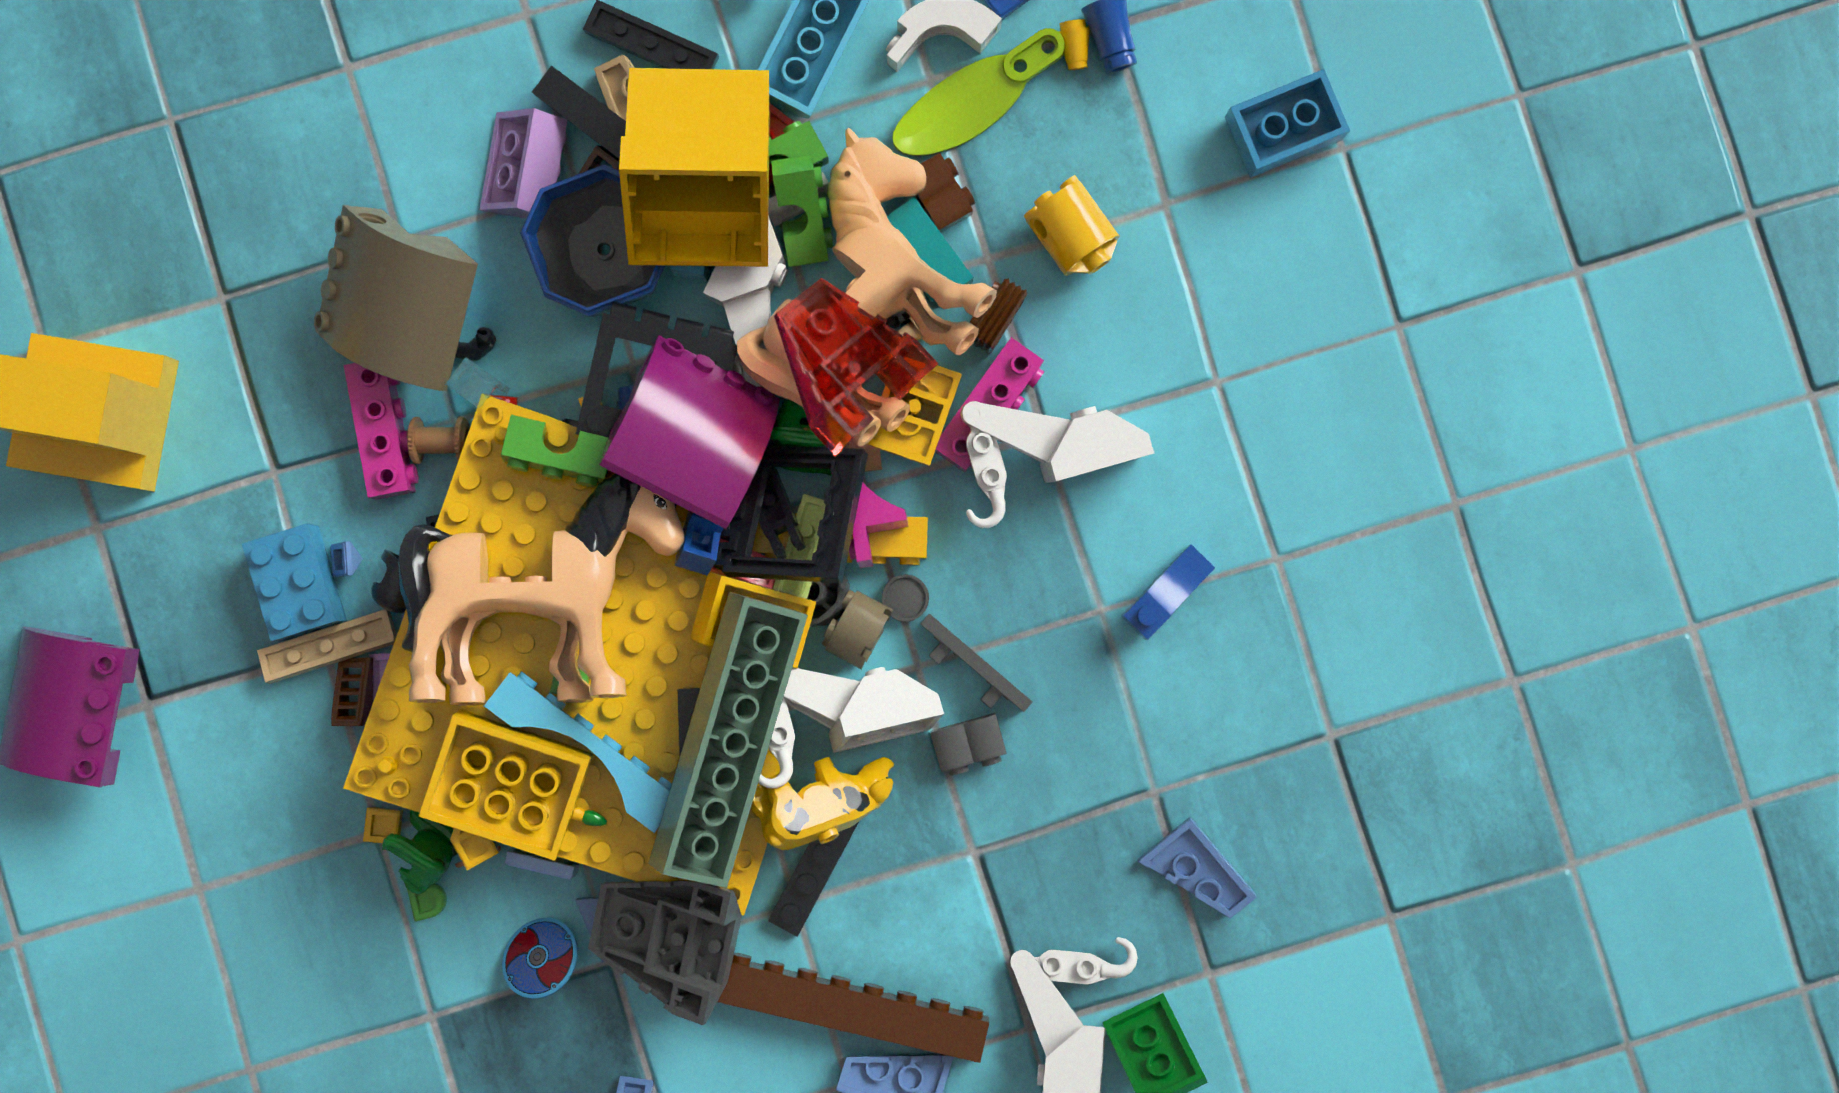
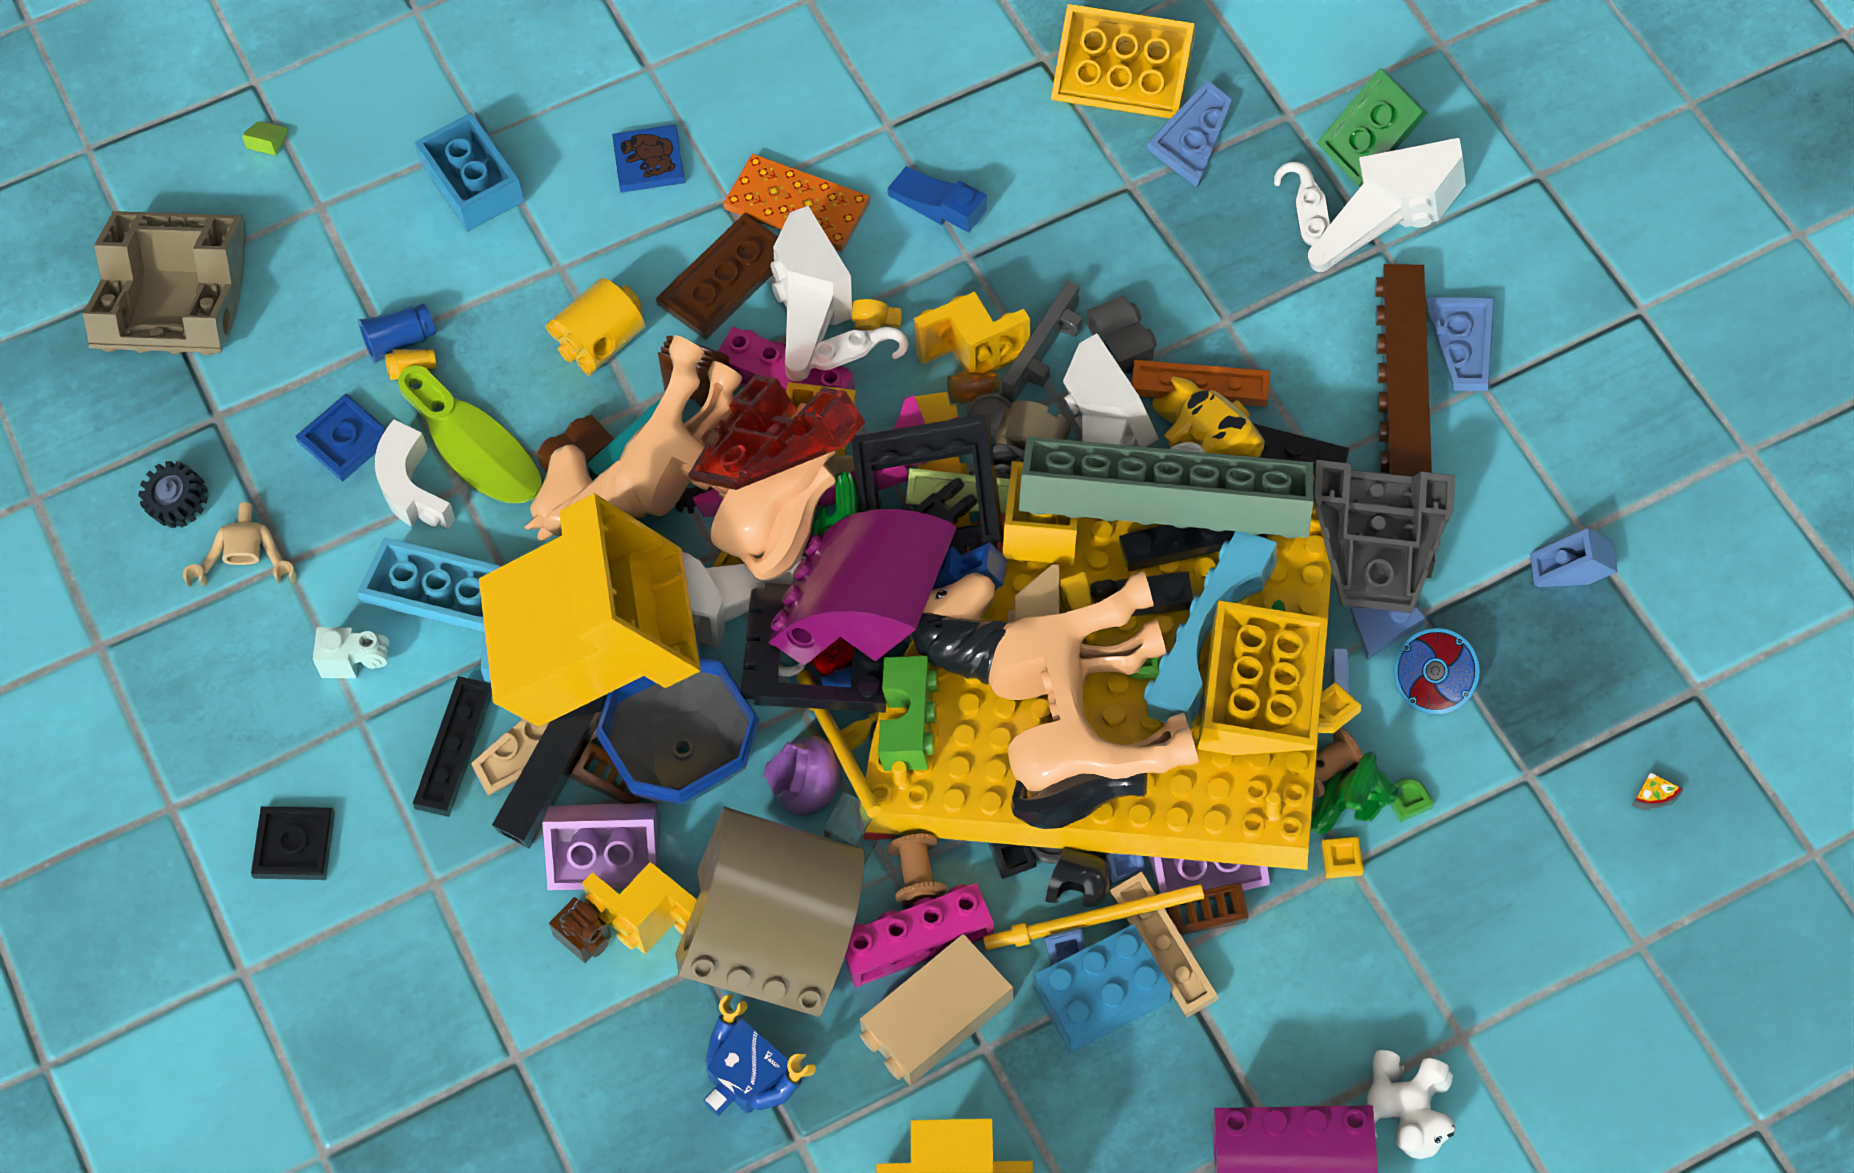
camera: 95 degrees left, 25 degrees down
(106, 828) = (1420, 1128): none -> white animal
(284, 263) = (748, 1066): none -> blue torso
(305, 433) = (935, 1010): none -> tan brick
(364, 523) = (1022, 934): none -> yellow bar
(437, 185) = (643, 908): none -> yellow bracket
(441, 134) = (580, 930): none -> reddish brown brick
(551, 355) = (804, 775): none -> medium lavender helmet
(625, 377) = (843, 753): none -> yellow bar
(639, 633) = (1076, 595): none -> yellow slope
(641, 593) = (1039, 596): none -> tan slope
(642, 699) = (1168, 592): none -> black hinge
(899, 810) = (1234, 384): none -> orange plate
(940, 585) = (967, 386): none -> clear orange cone
(987, 592) = (971, 334): none -> yellow bracket
(1039, 500) = (873, 314): none -> yellow piece
(1121, 364) = (721, 277): none -> reddish brown tile
(1195, 450) = (773, 190): none -> orange tile
(1279, 309) = (648, 158): none -> tile
(1300, 816) = (1123, 61): none -> yellow slope

